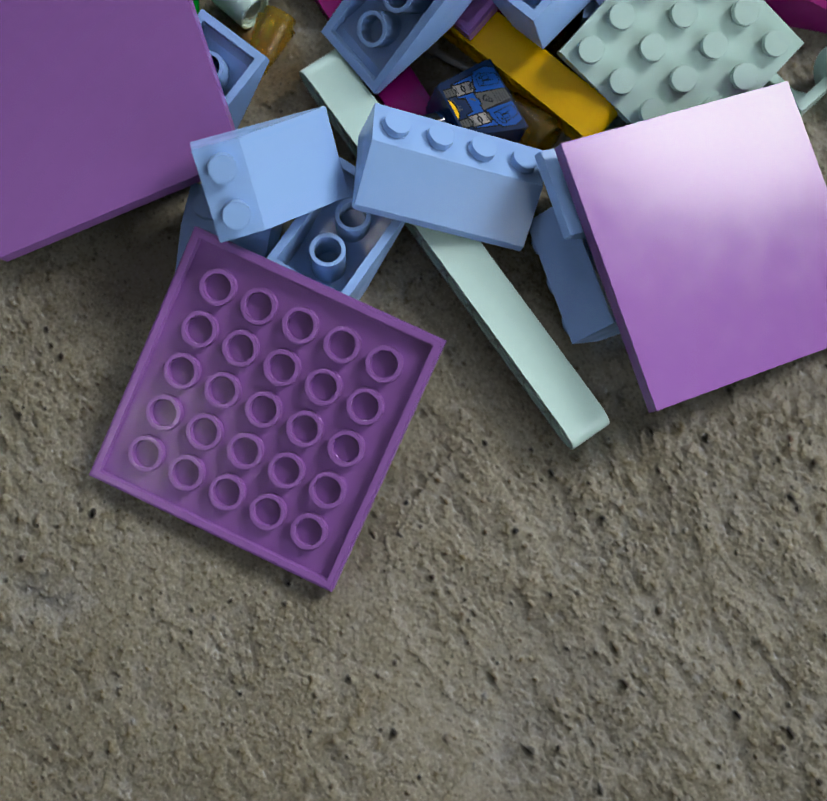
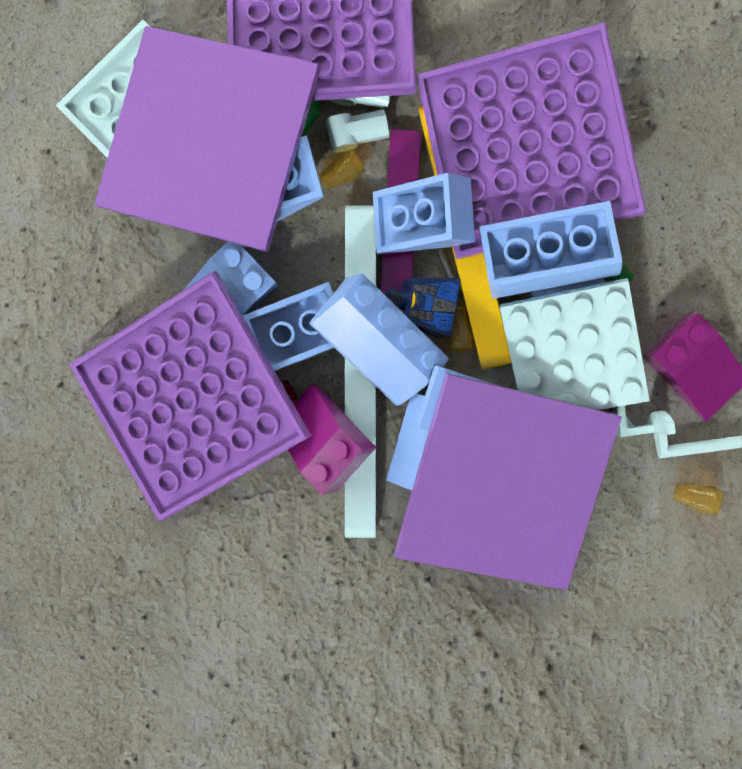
camera: 30 degrees right, 10 degrees up
(269, 172) = (272, 271): light blue slope -> none
(484, 341) = (334, 445): none -> magenta slope

